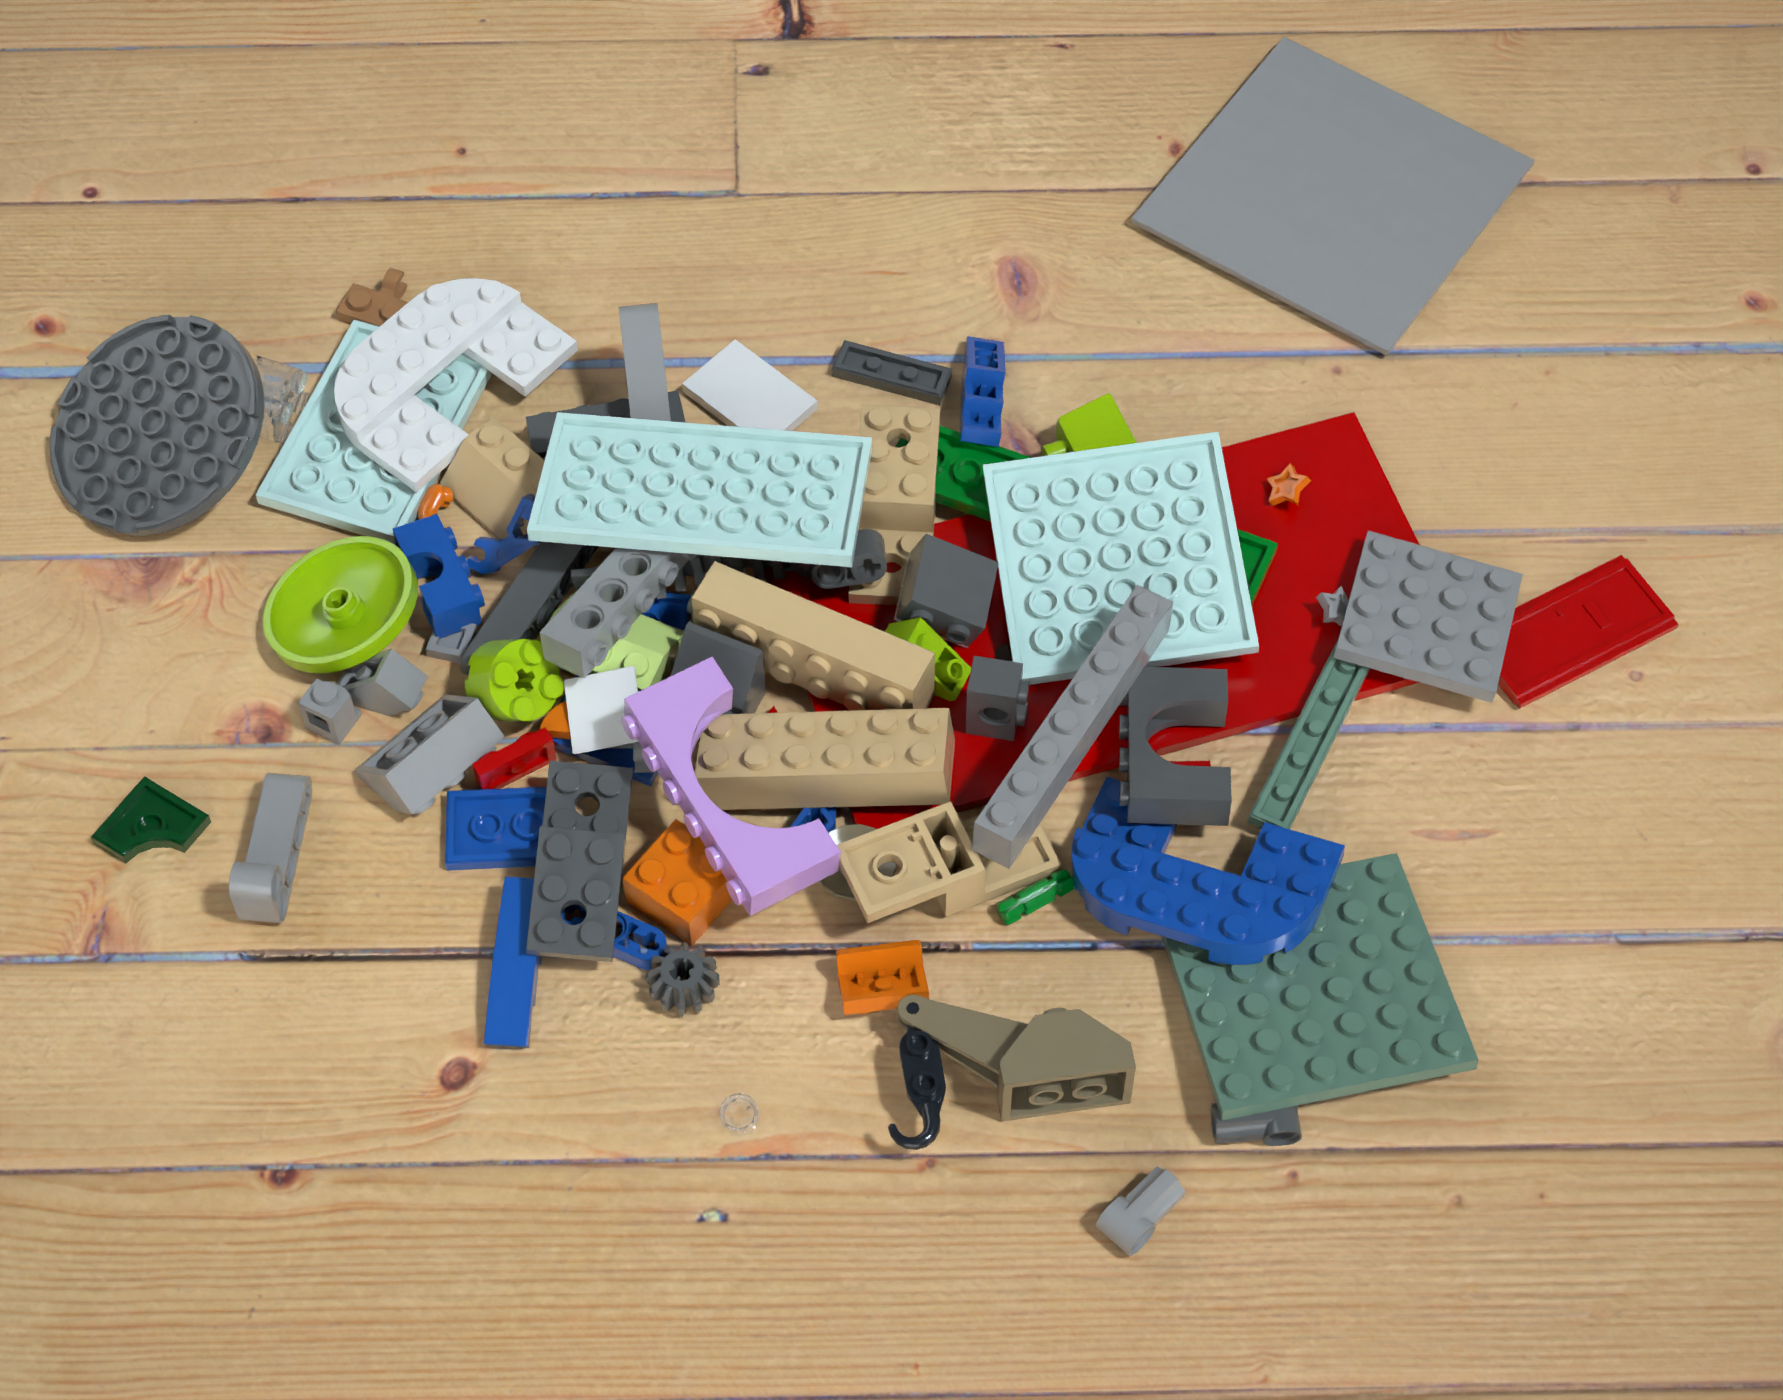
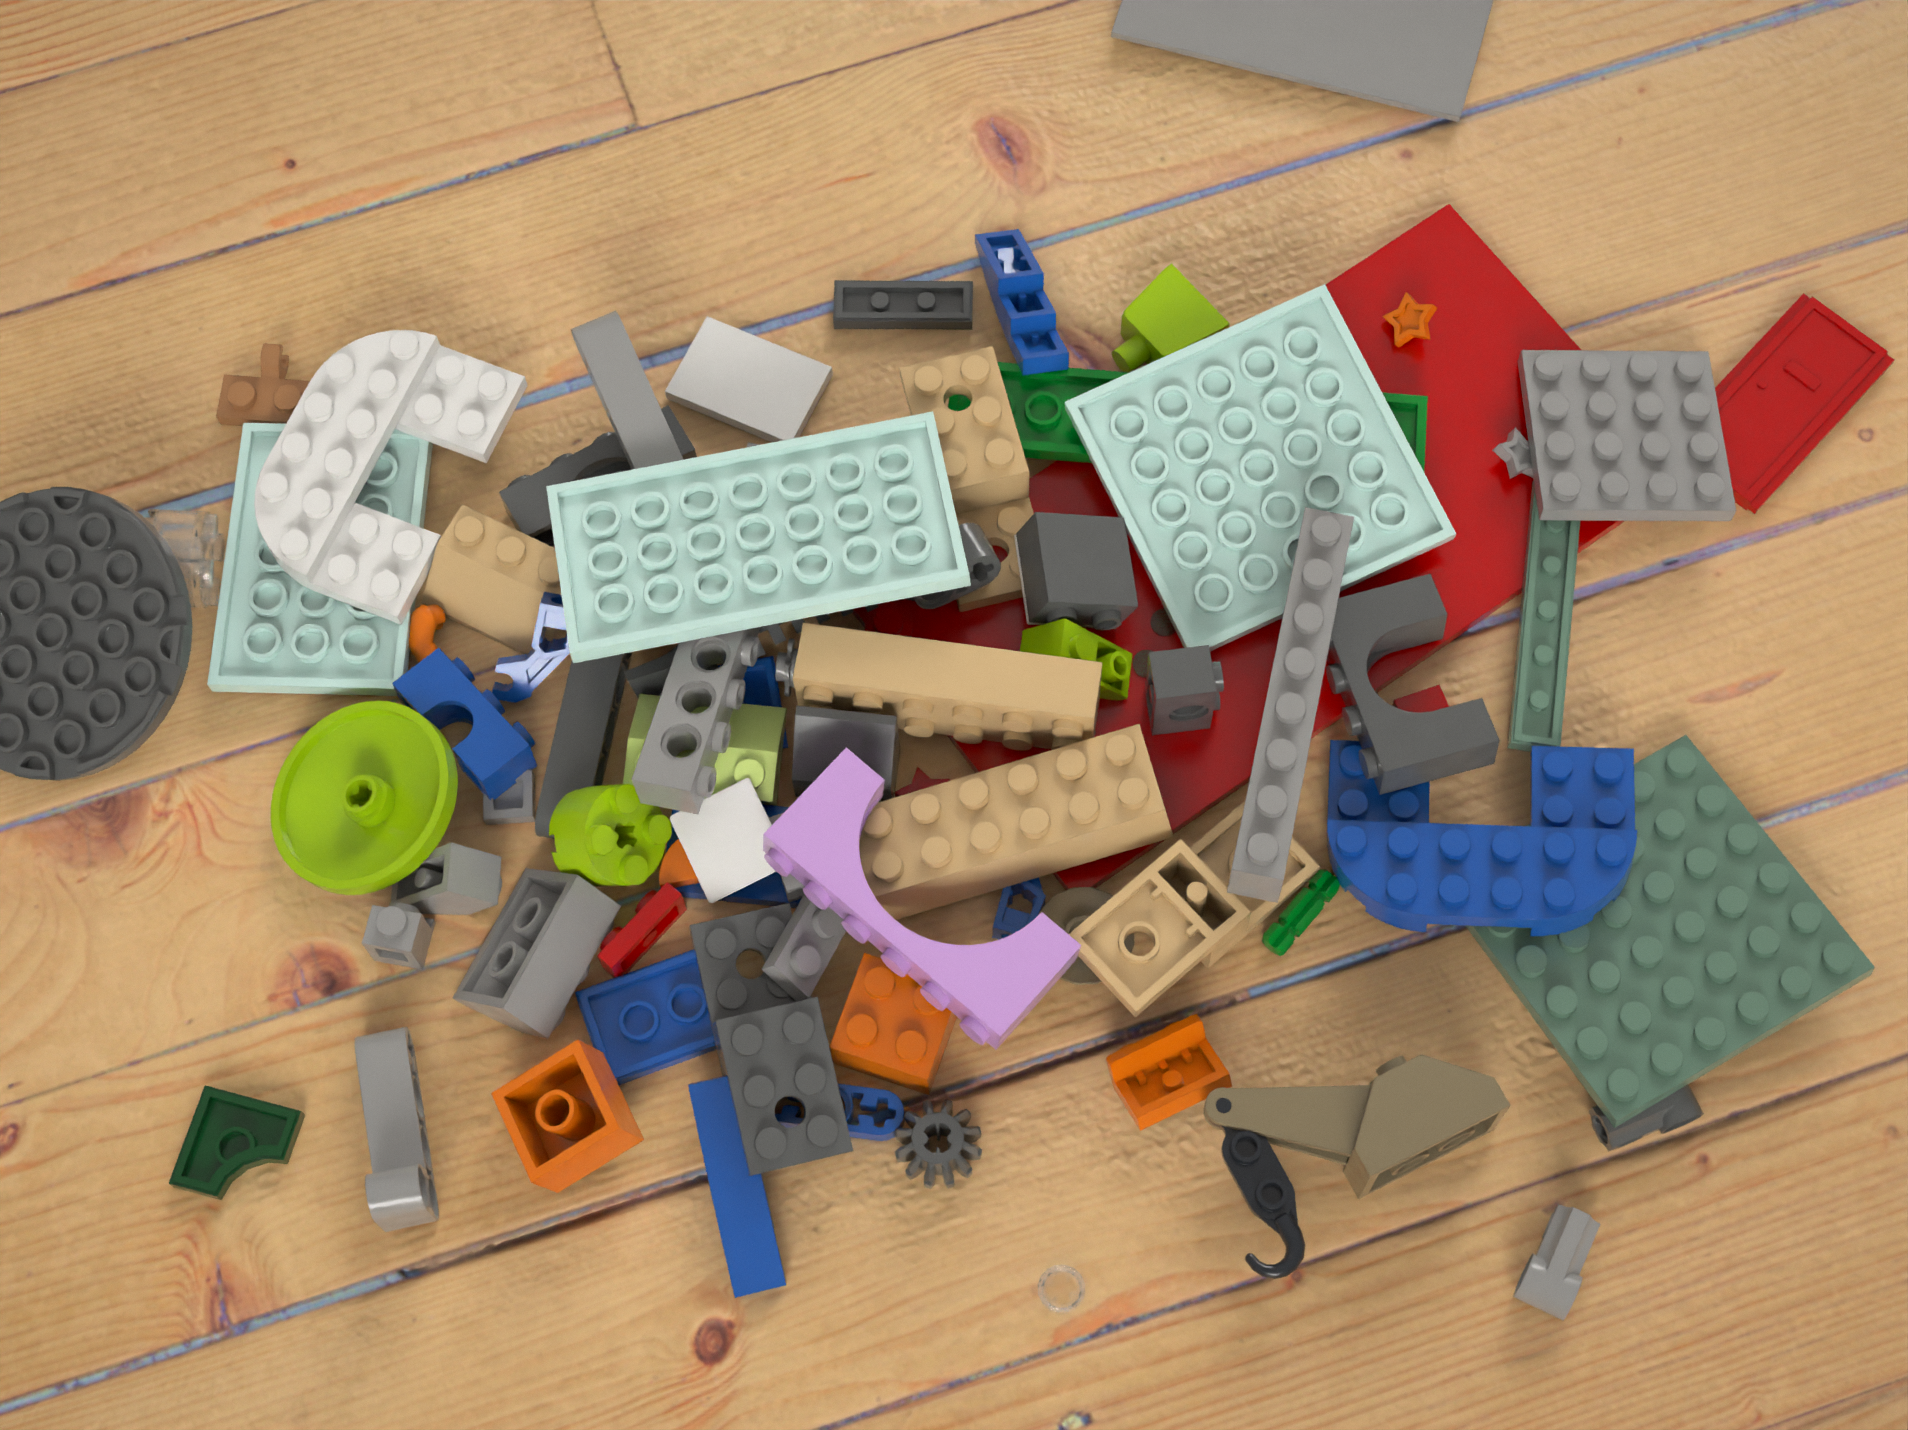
camera: 15 degrees left, 10 degrees up
(405, 872) = (567, 1116): none -> orange brick
(633, 802) = (804, 949): none -> light grey plate

